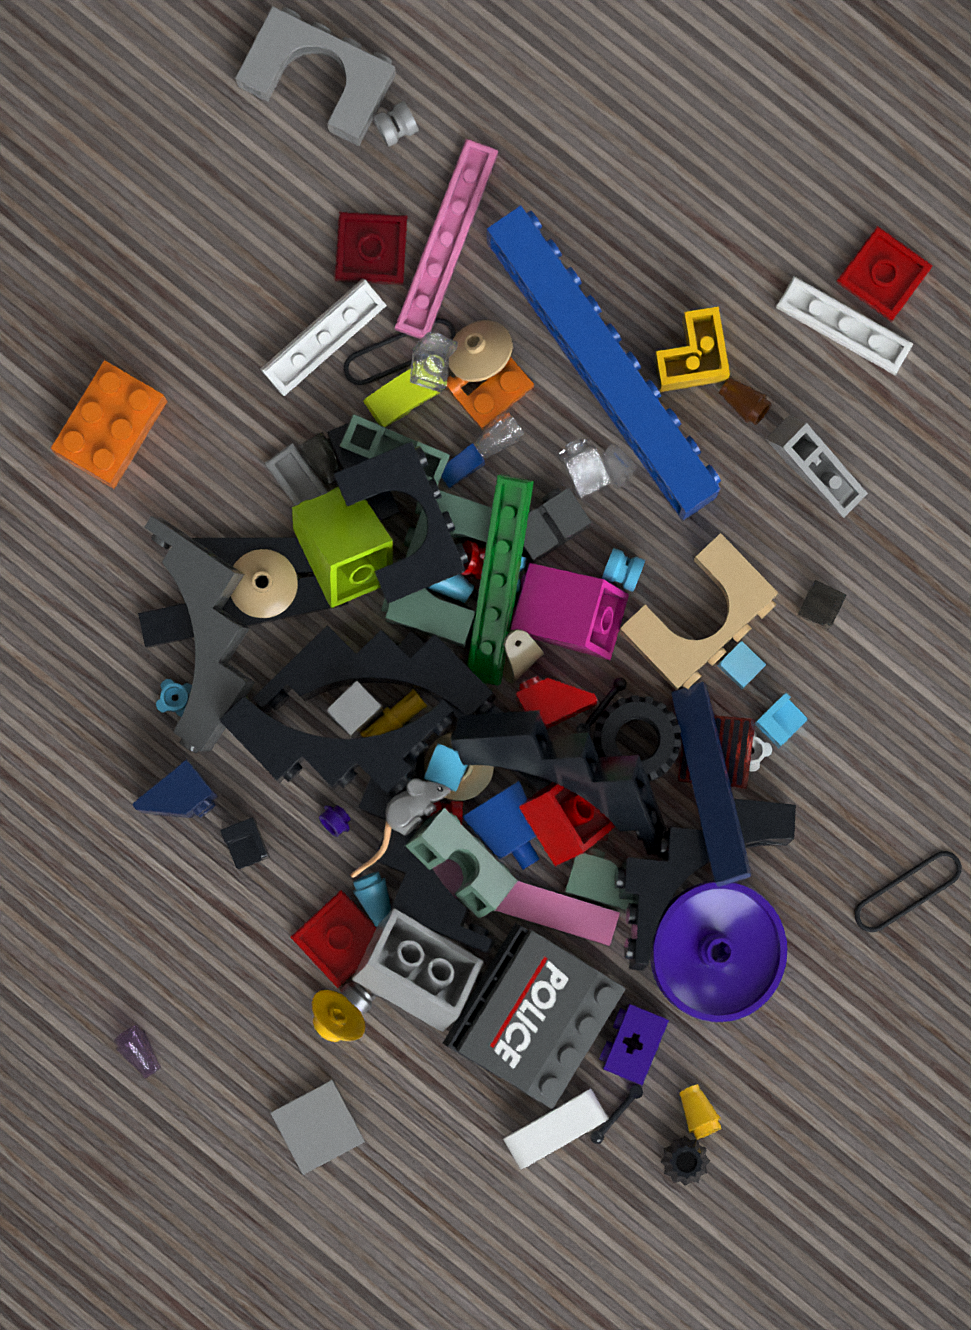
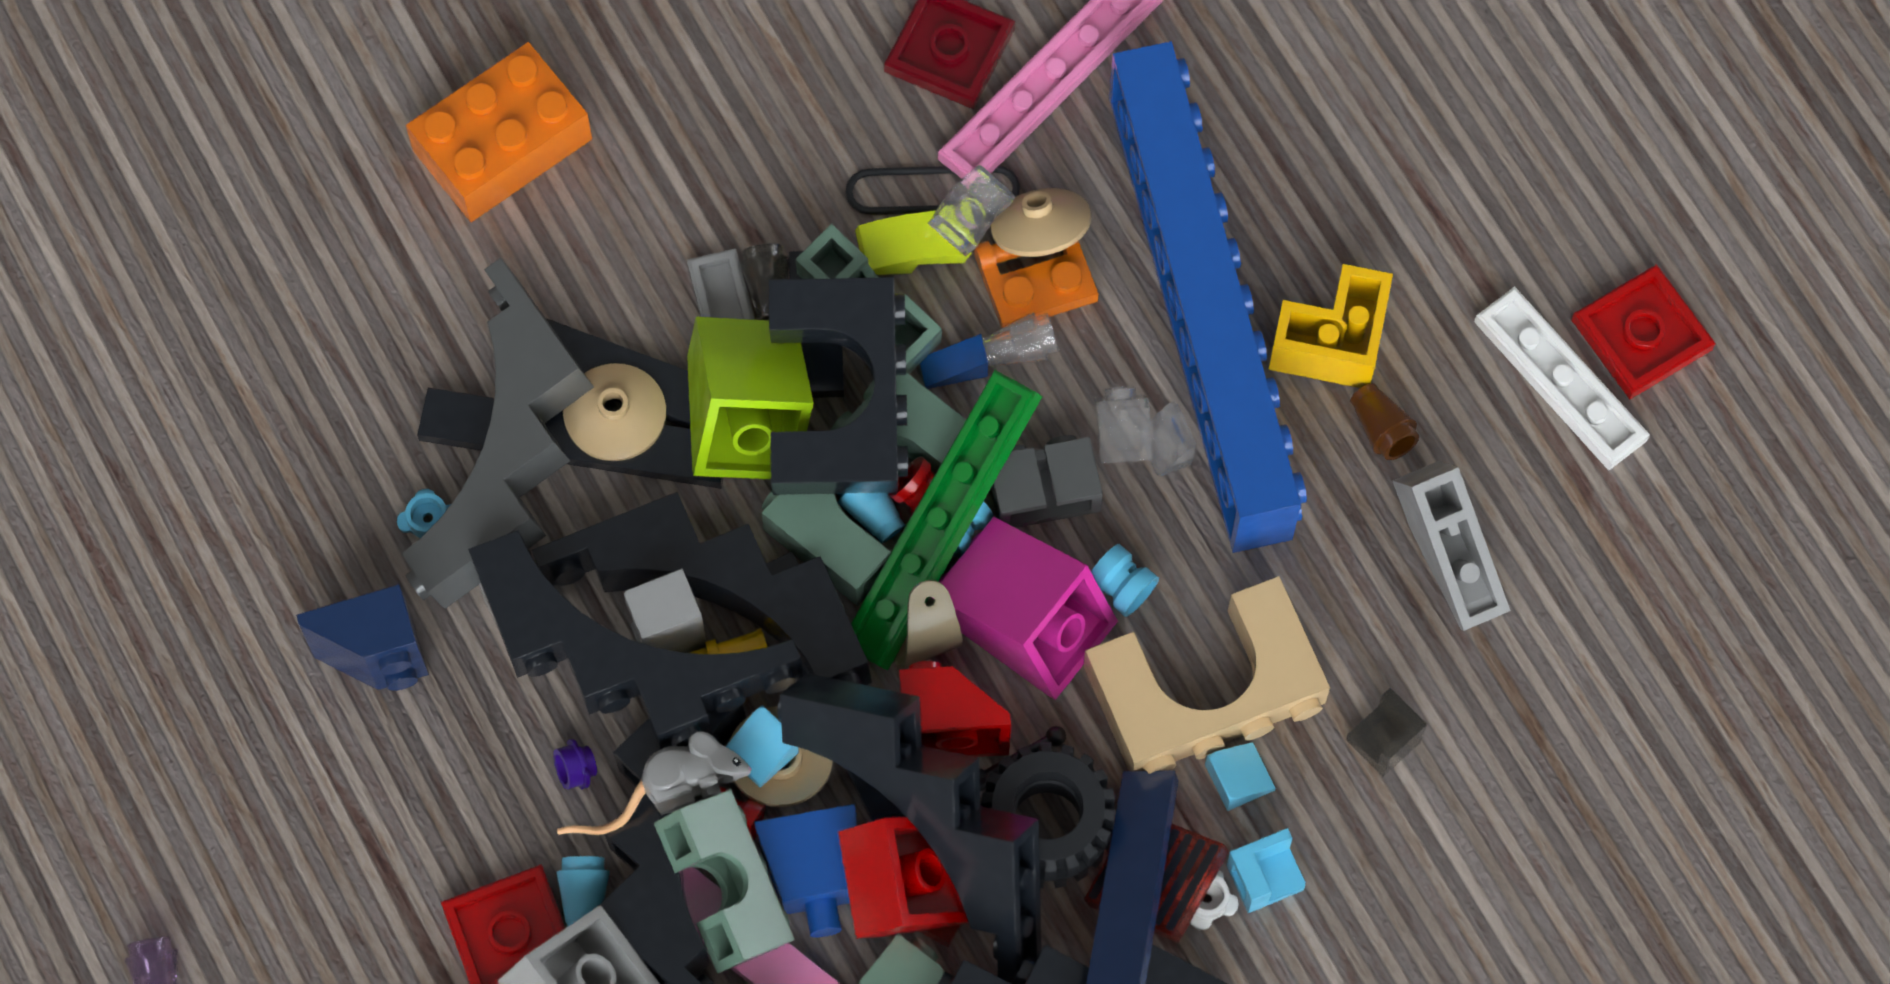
camera: 20 degrees right, 15 degrees down
(245, 843) = (435, 746): black panel -> none
(323, 337) = (836, 130): white tile -> none

